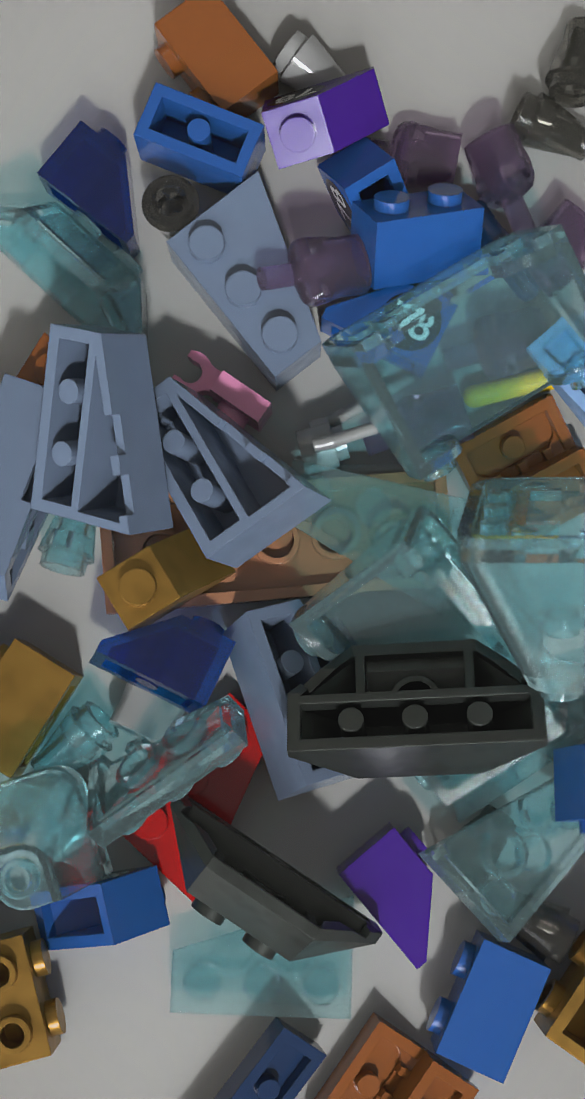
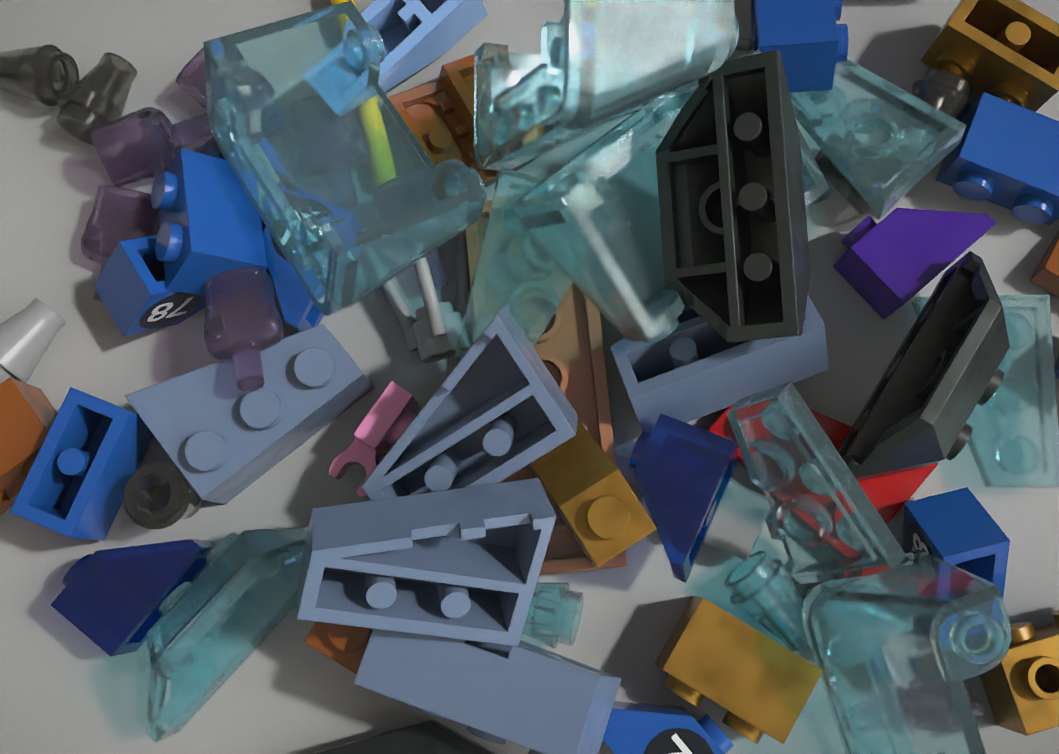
camera: 90 degrees left, 5 degrees down
(324, 117) = (68, 329): dark purple slope -> none

